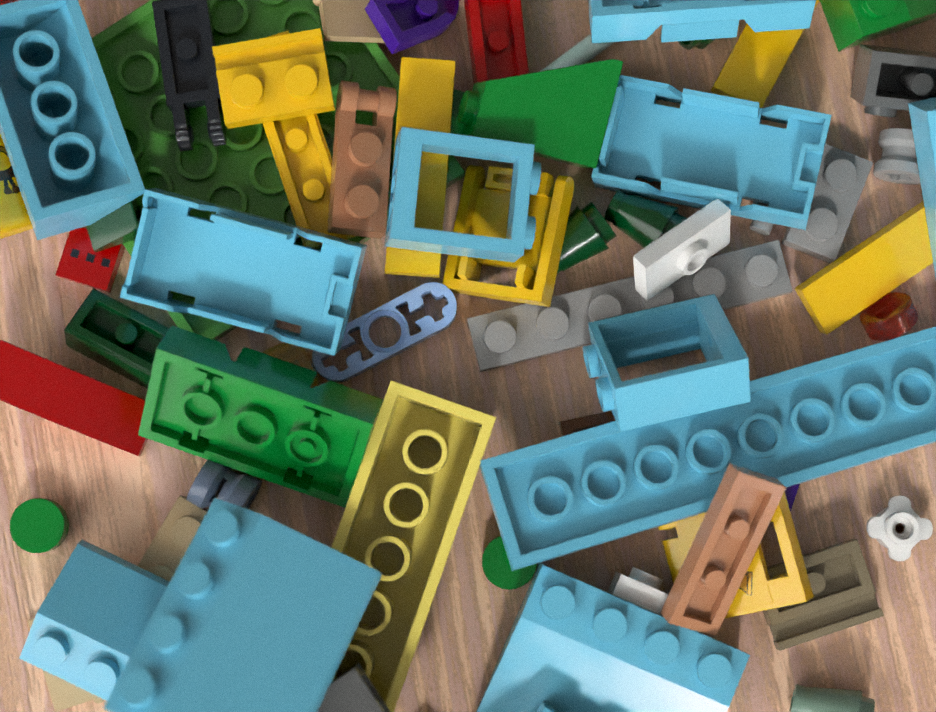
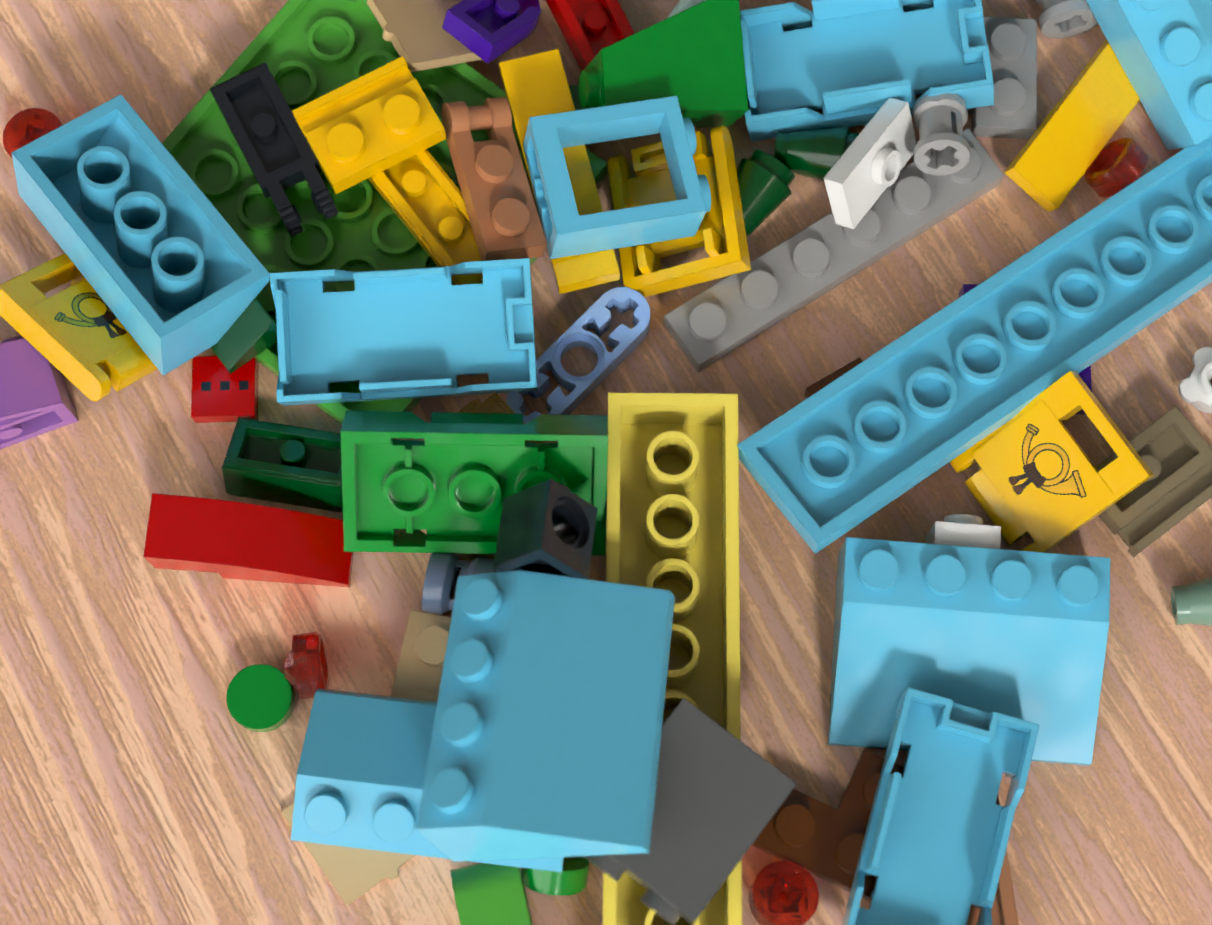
camera: 15 degrees left, 10 degrees down
(82, 514) = (307, 664): none -> clear red tile
(295, 488) = (546, 532): none -> black brick
(498, 570) = (800, 568): green tile -> none
(660, 334) = (901, 281): medium azure window -> none
(722, 550) = (1037, 452): nougat plate -> none
(749, 244) = (941, 140): none -> light grey bush

